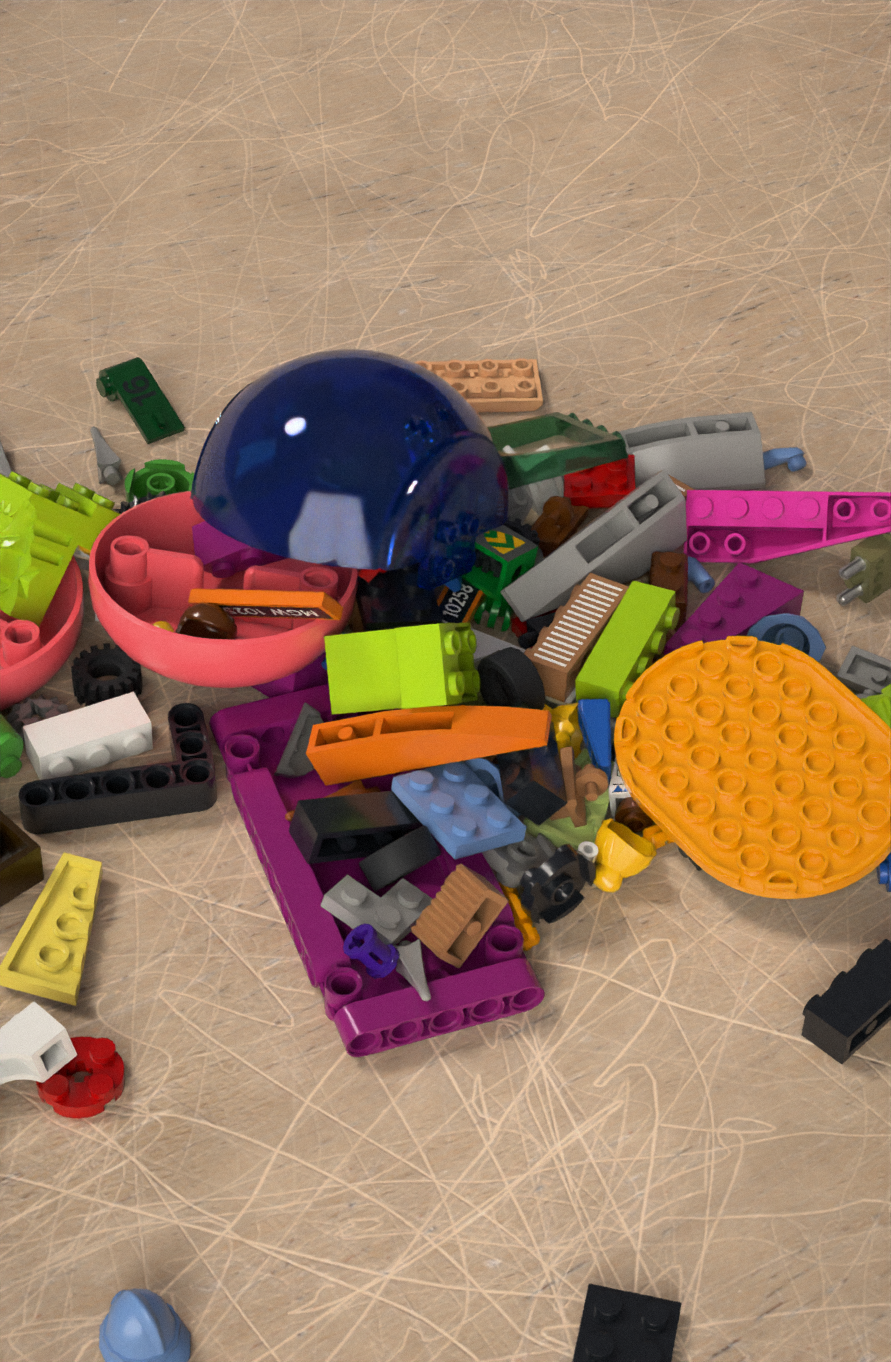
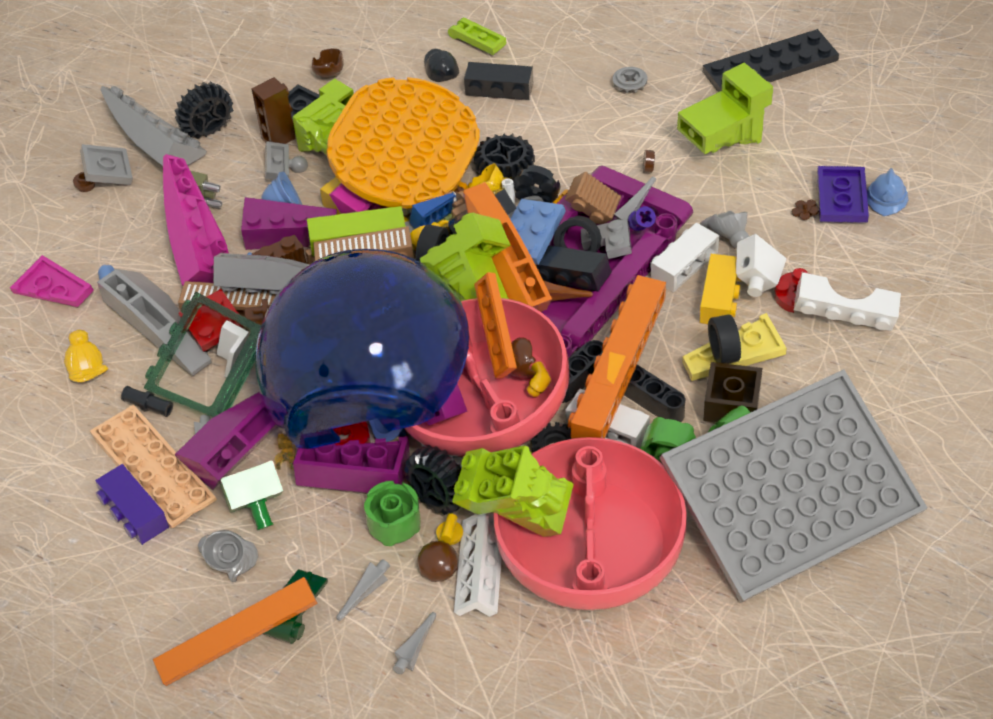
camera: 120 degrees left, 5 degrees up
(64, 862) = (724, 339): none -> black tyre
(142, 339) = (235, 631): none -> orange tile
(146, 766) = (619, 359): none -> orange brick
(152, 1030) = (758, 265): none -> white torso
(170, 979) = (720, 288): none -> yellow brick
(200, 1268) = (842, 194): none -> dark purple plate
(225, 1207) = (805, 209): none -> reddish brown plant
(254, 365) = (228, 553): none -> light grey hair
(271, 981) = (684, 256): none -> white brick
(279, 1064) = (728, 225): none -> light grey hair
(404, 339) = (131, 504): none -> dark purple brick
(481, 1184) = (729, 115): none -> lime brick
(507, 1069) = (648, 161): none -> reddish brown tile
(538, 407) = (147, 401): none -> black pin
(654, 389) = (83, 358): none -> yellow hair
(667, 906) = (506, 152): none -> black gear
(744, 1169) = (630, 73): none -> light grey gear
(812, 415) = (52, 283): none -> dark pink wing

